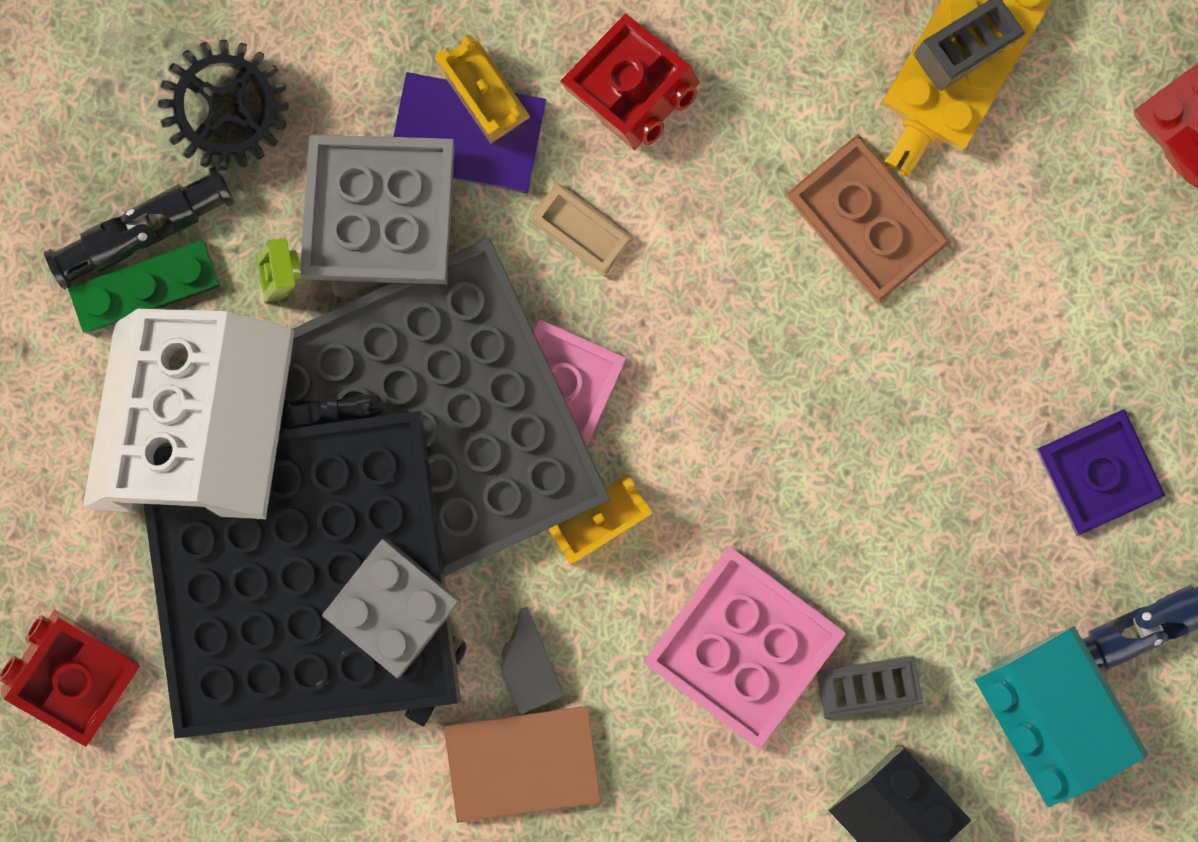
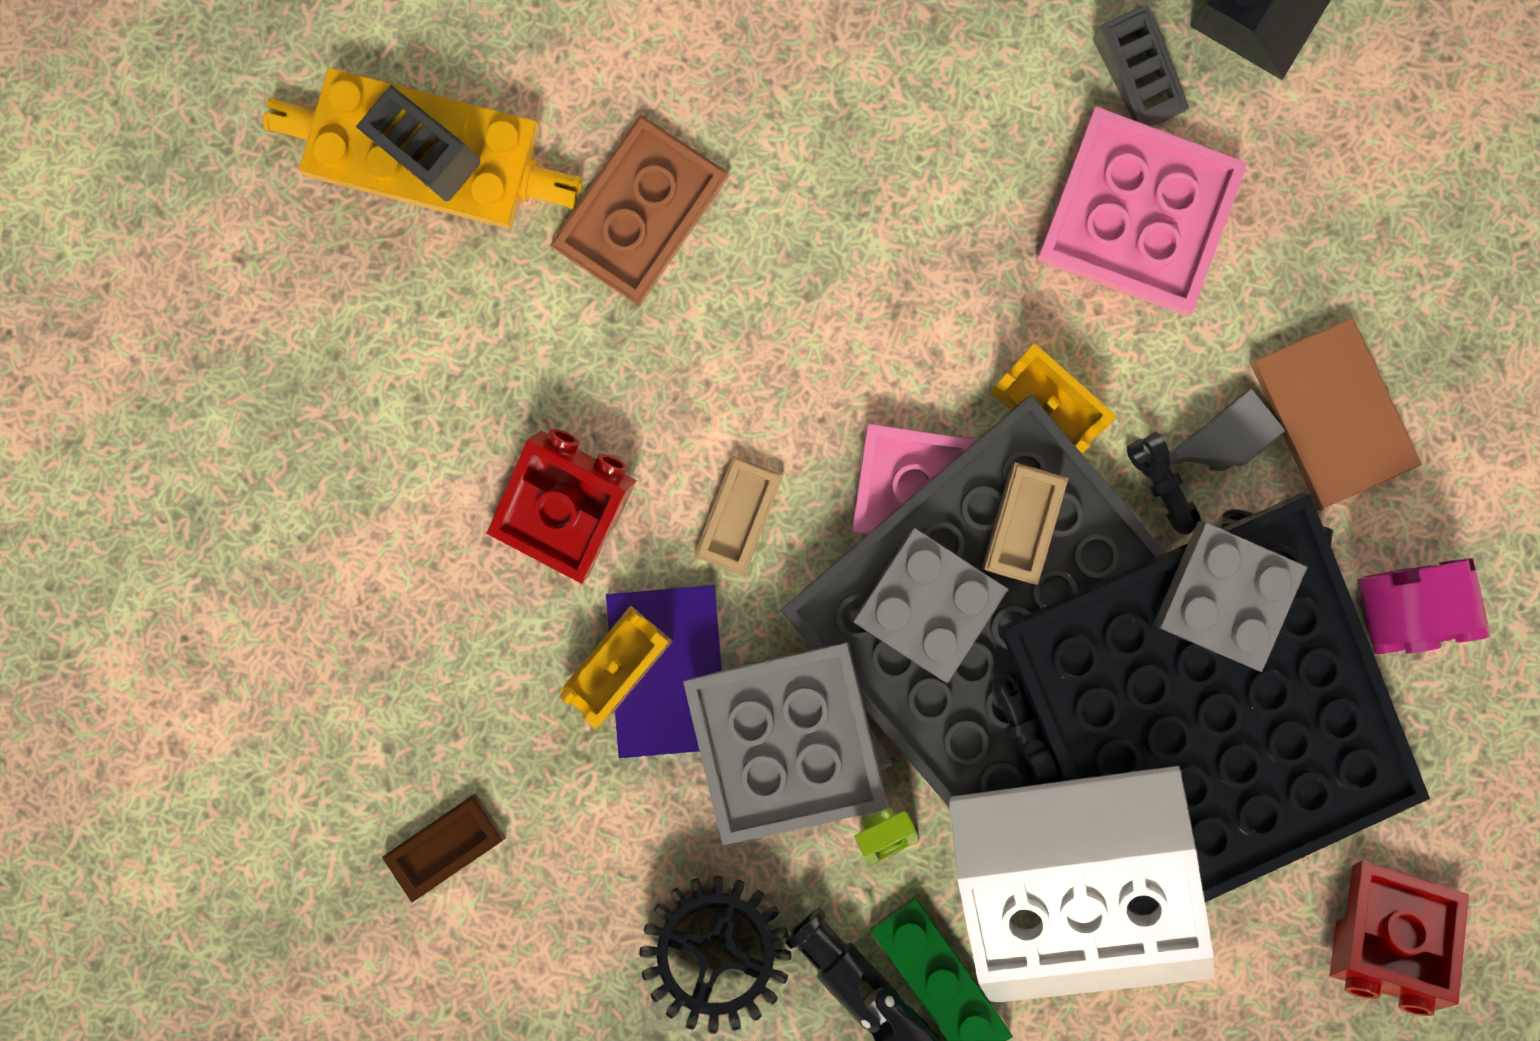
camera: 105 degrees left, 0 degrees up
(337, 777) = (1424, 607): none -> dark pink brick
(457, 361) = (930, 605): none -> light grey plate
(502, 460) = (1024, 523): none -> tan tile
(528, 593) = (1156, 465): none -> black piece

